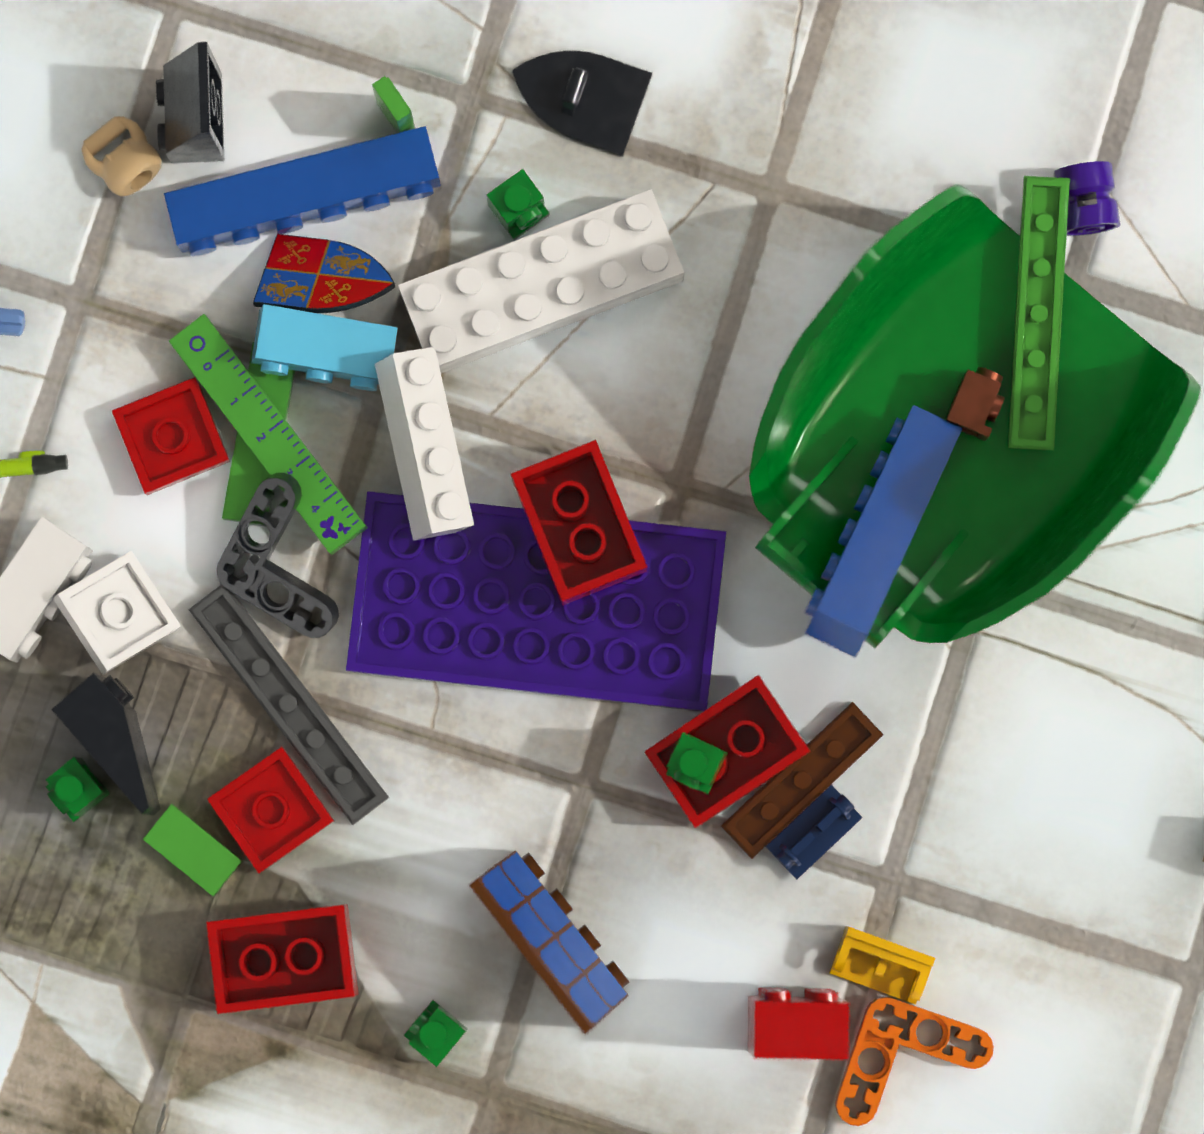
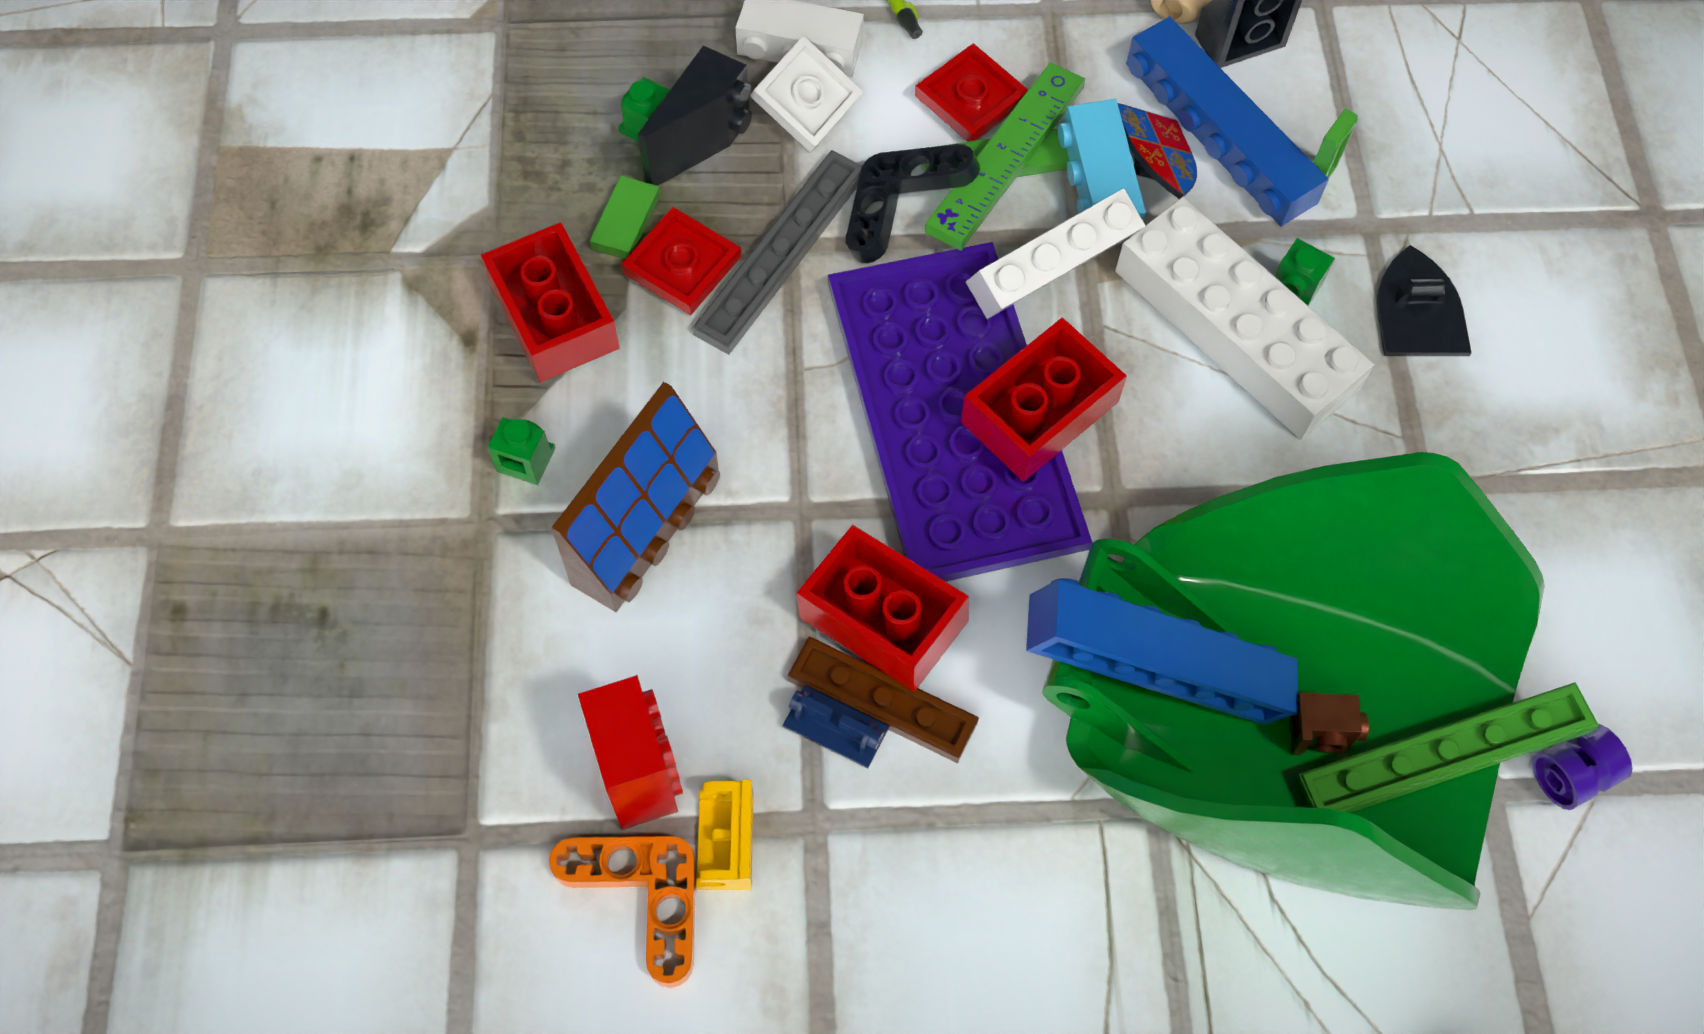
camera: 70 degrees right, 20 degrees down
(695, 763) = (860, 560): green brick -> none

